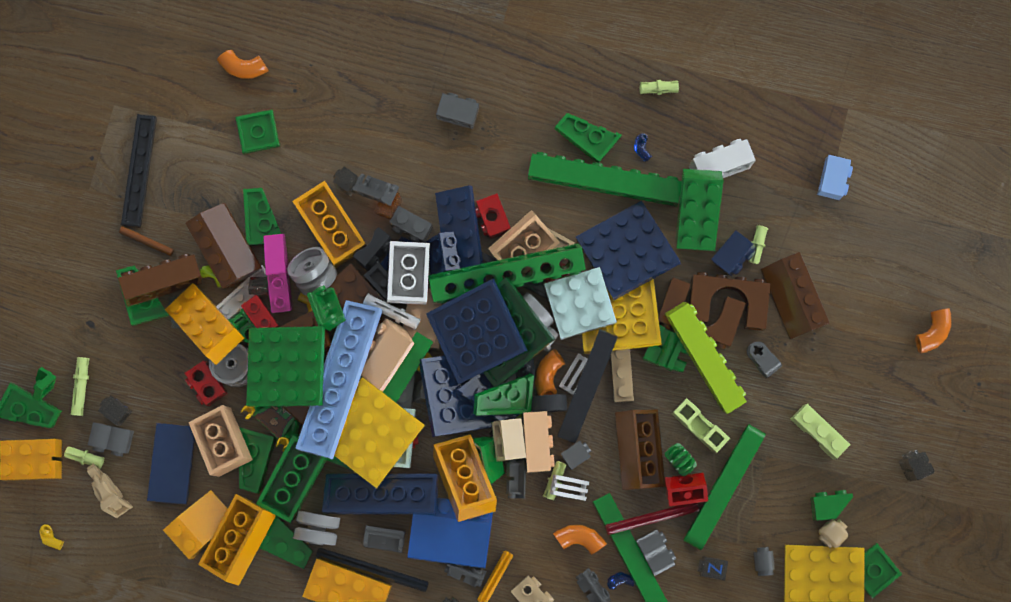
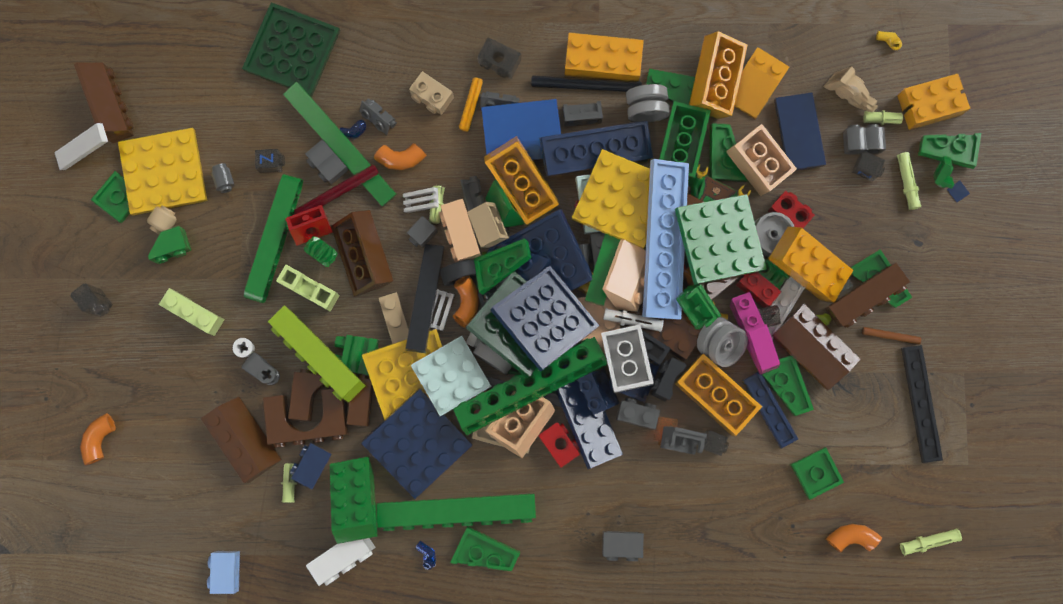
camera: 165 degrees right, 0 degrees up
(33, 364) = (959, 191): none -> dark blue sticker
(173, 44) = (923, 543): none -> yellowish green pin
(283, 200) = (770, 410): none -> dark blue tile
(781, 382) = (240, 343): none -> white bush

